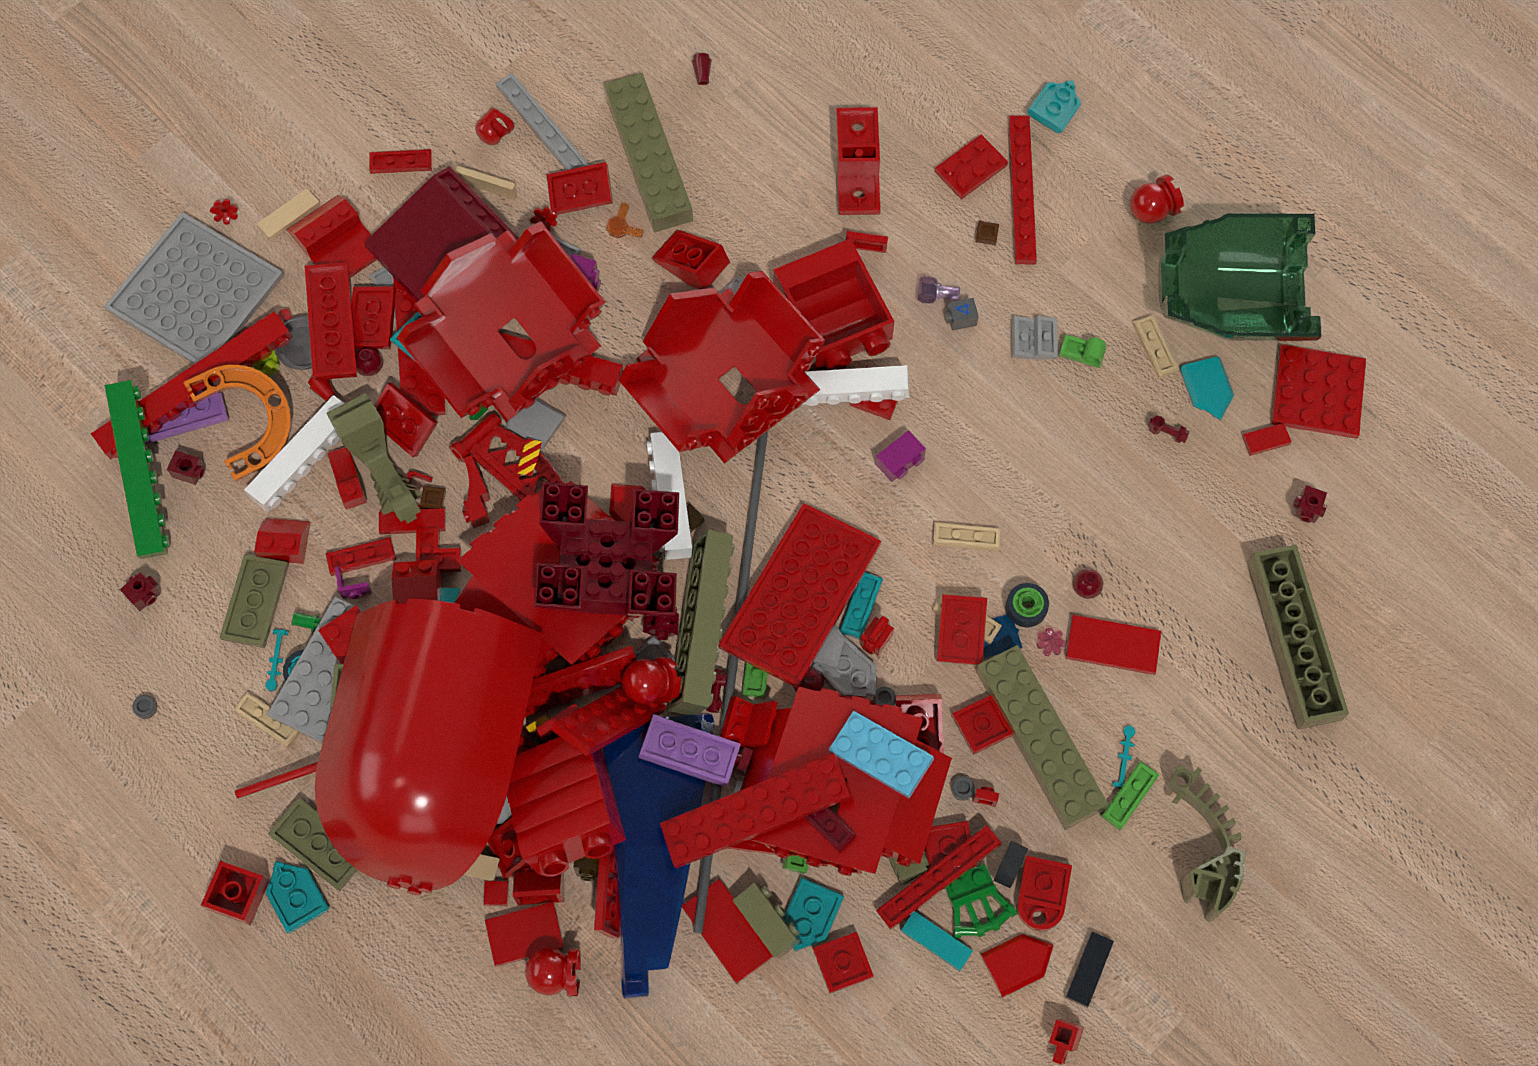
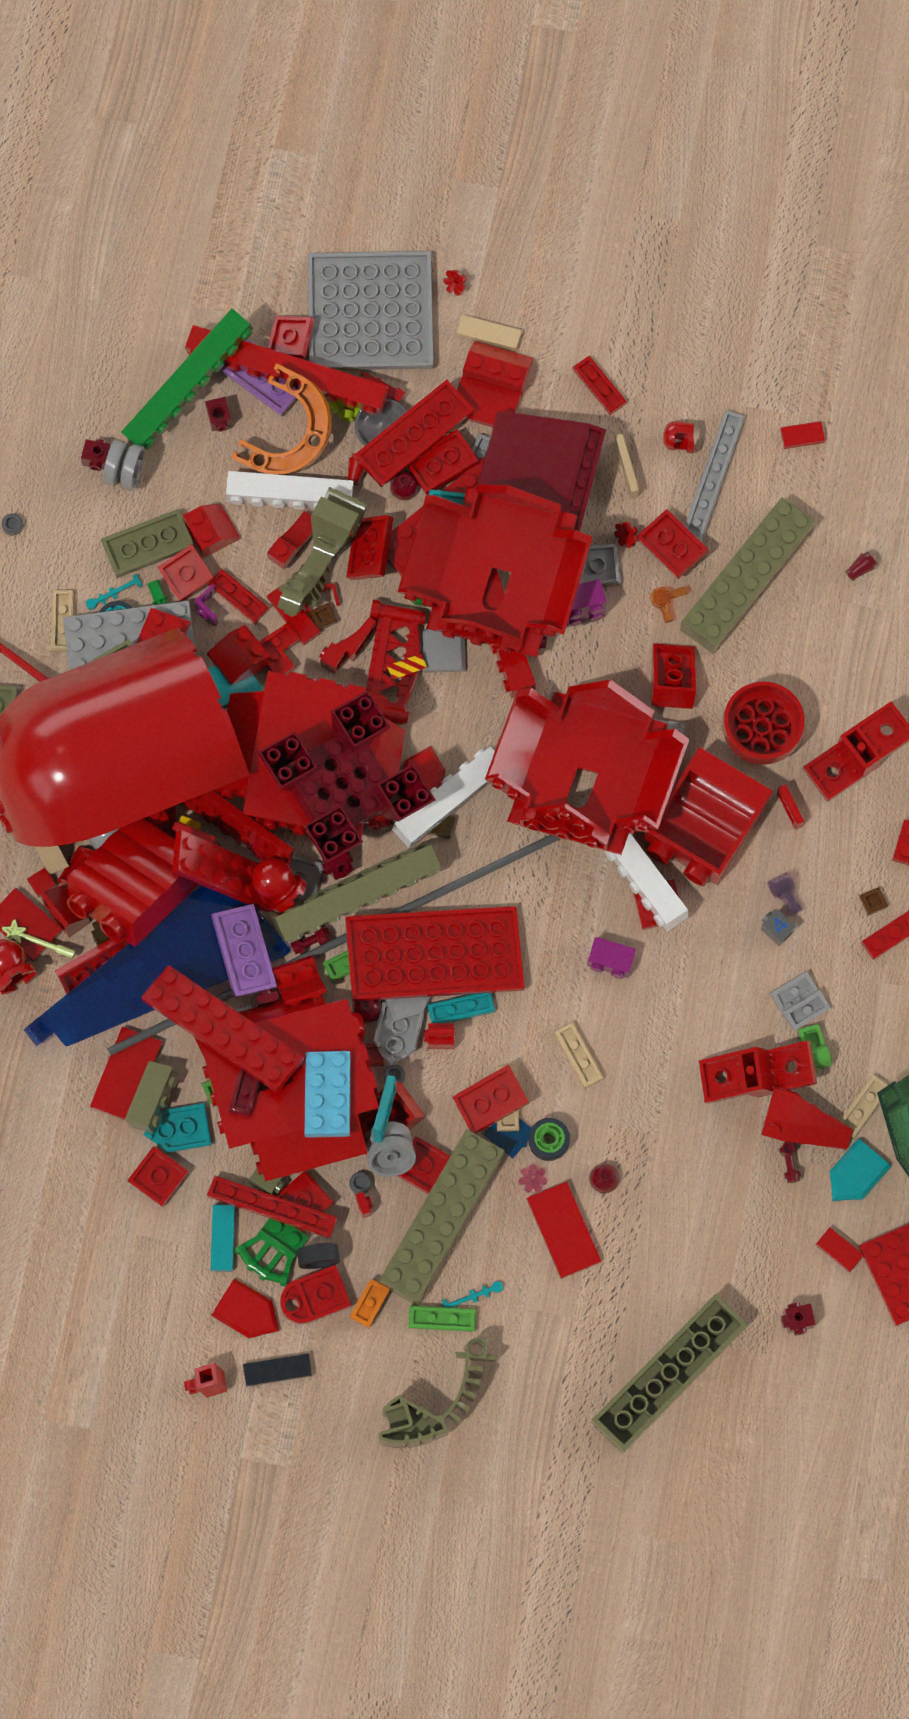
camera: 55 degrees right, 5 degrees up
(164, 362) = (291, 335): none -> red plate
(169, 572) = (123, 465): none -> light grey wheel
(307, 584) = (186, 573): none -> red plate
(528, 946) = (17, 933): none -> yellowish green piece
(560, 43) = (802, 435): none -> red tile
(773, 194) = (781, 704): none -> red wheel
(928, 720) = (384, 1109): none -> teal tile
(957, 737) = (394, 1154): none -> light grey wheel
(1078, 403) = (757, 1071): none -> red bracket
(1079, 848) = (369, 1303): none -> orange plate
(1140, 399) = (798, 1121): none -> red wedge

